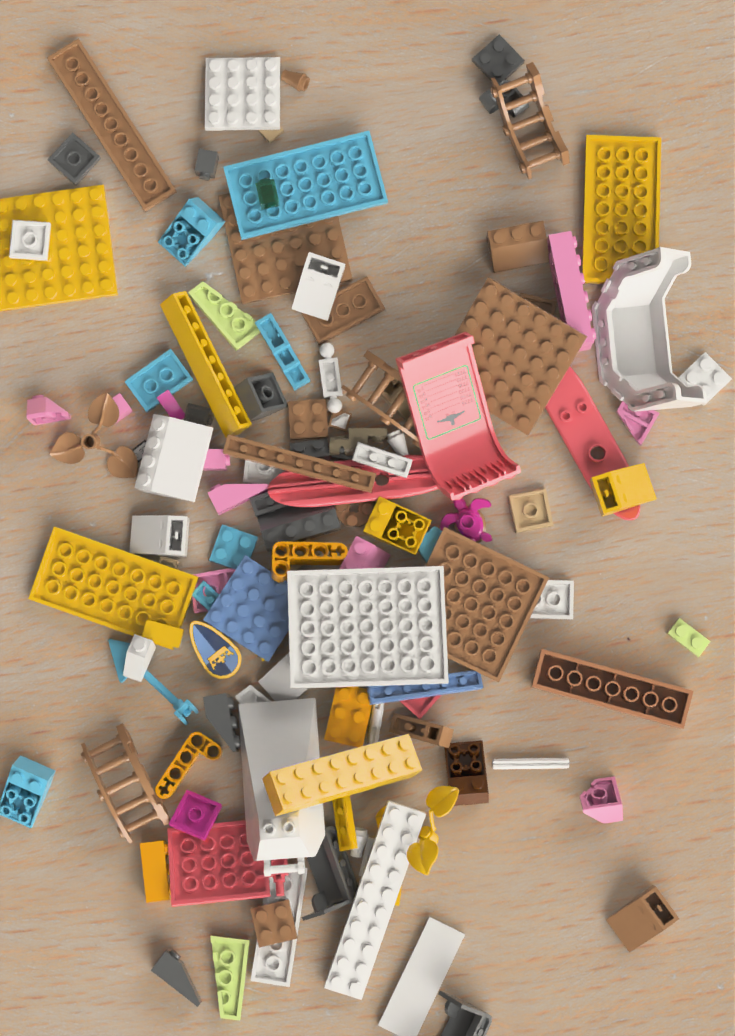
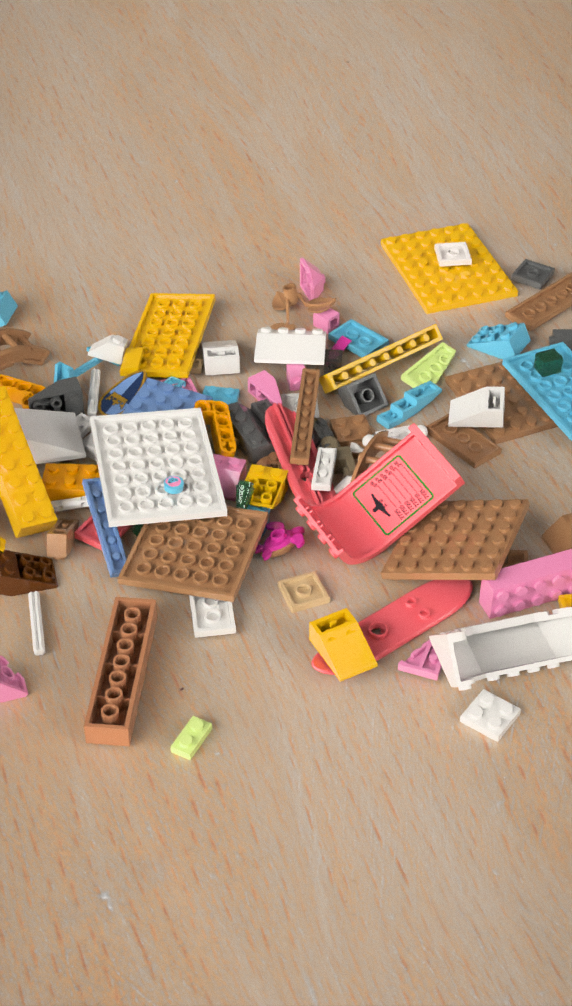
camera: 75 degrees right, 40 degrees down
(196, 681) = (93, 395): none -> white axle
(407, 613) = (173, 484): none -> tile
(418, 545) = (244, 493): none -> clear green cone

